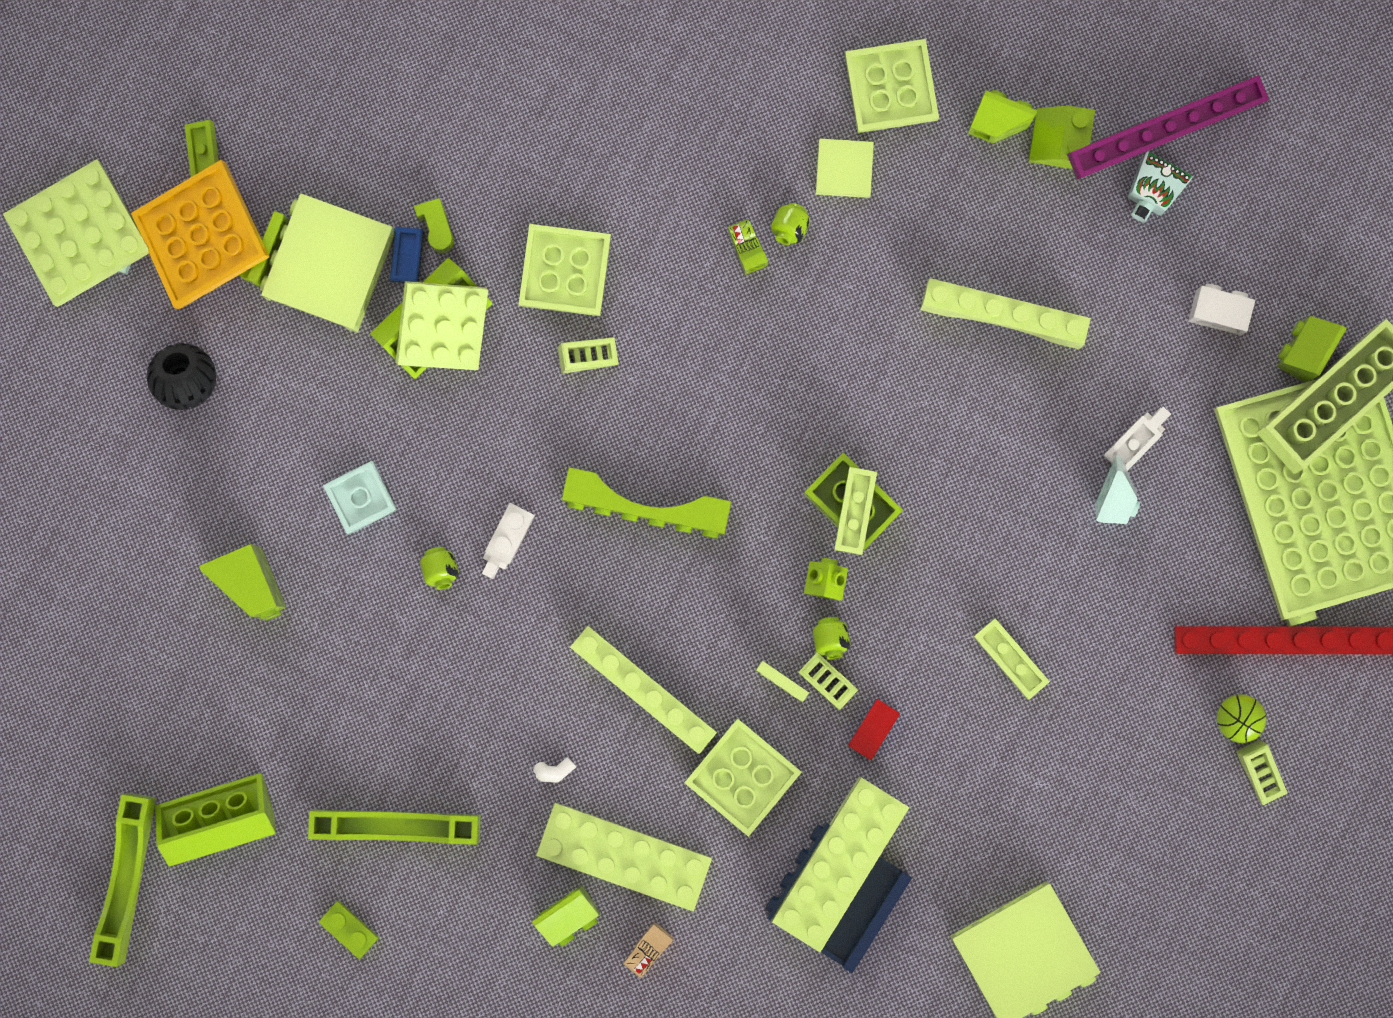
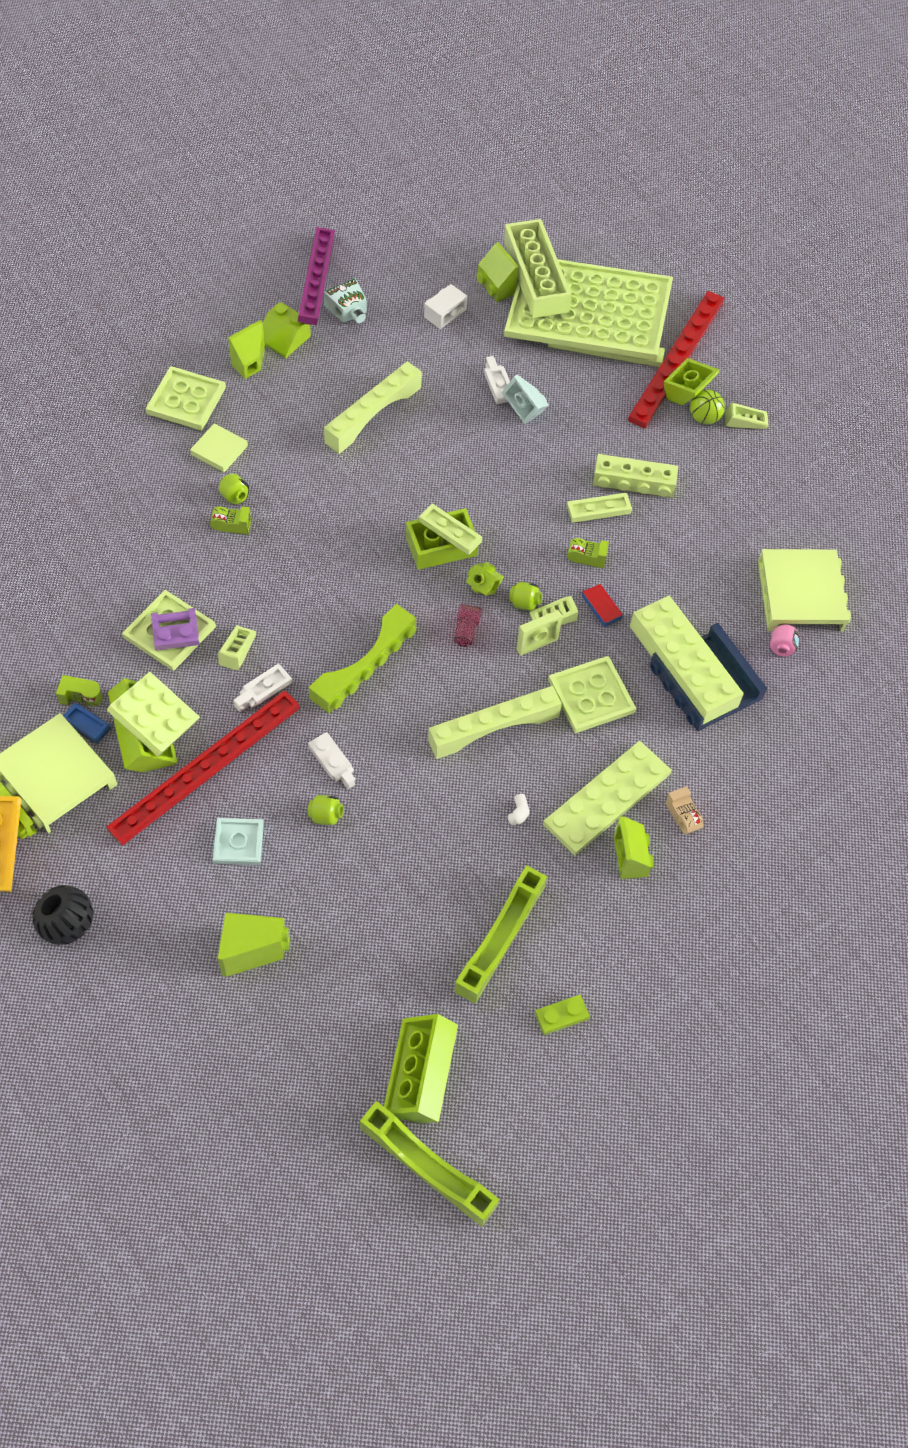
camera: 70 degrees left, 25 degrees down
(423, 412) = (202, 768): none -> red plate
(550, 415) = (262, 688): none -> white hinge
(555, 283) = (175, 635): none -> medium lavender plate
(761, 590) = (467, 620): none -> clear pink piece
(936, 678) = (588, 552): none -> lime leg
(938, 963) = (784, 640): none -> bright pink head
(1083, 680) = (635, 475): none -> yellowish green brick
(1266, 679) = (688, 381): none -> lime slope

